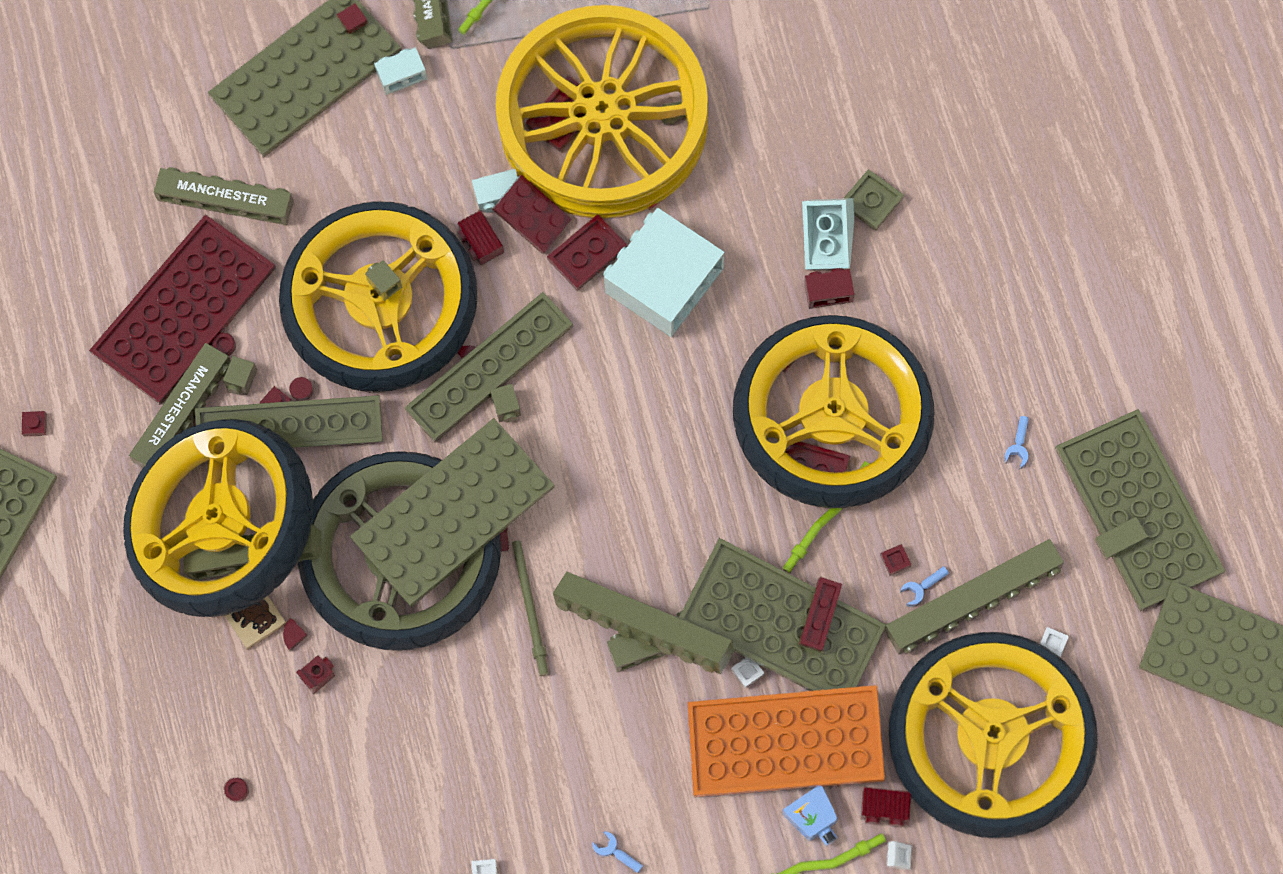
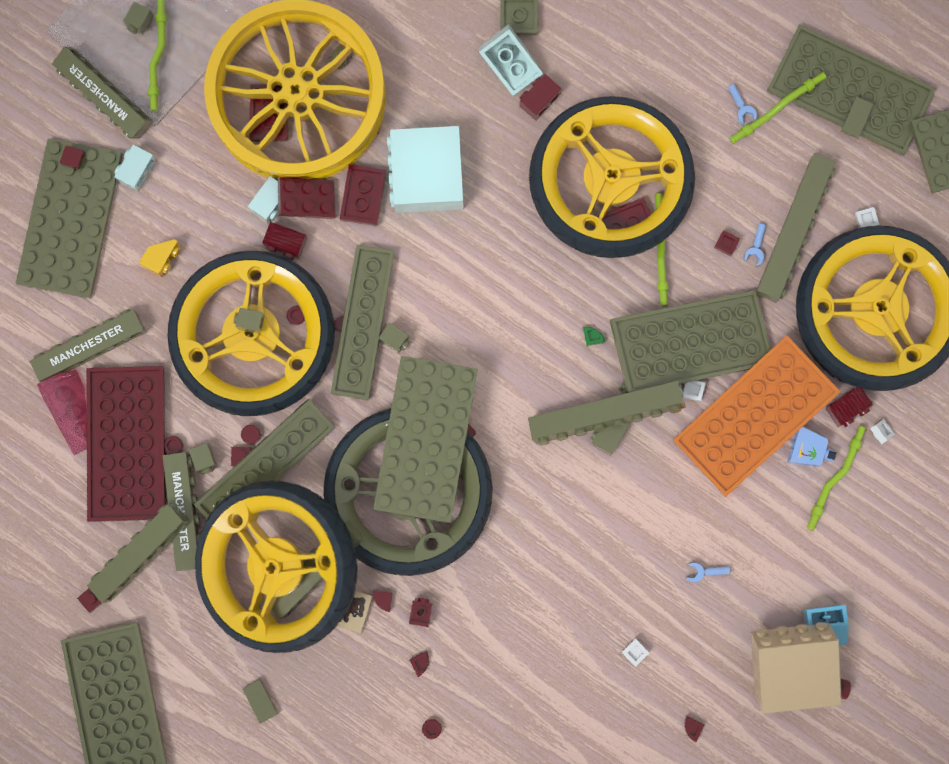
camera: 40 degrees left, 10 degrees up
(103, 636) = (260, 701): none -> olive tile
(109, 412) = (138, 553): none -> olive brick
(161, 231) = (67, 404): none -> clear pink wedge
(277, 720) = (420, 663): none -> dark red tile
(355, 166) = (159, 256): none -> yellow slope
(431, 313) = (295, 315): none -> dark red tile
(539, 651) = (551, 483): olive bar -> none
(693, 548) = (592, 336): none -> green tile
(820, 614) = (713, 317): dark red plate -> none
(1097, 471) = (747, 130): none -> lime bar

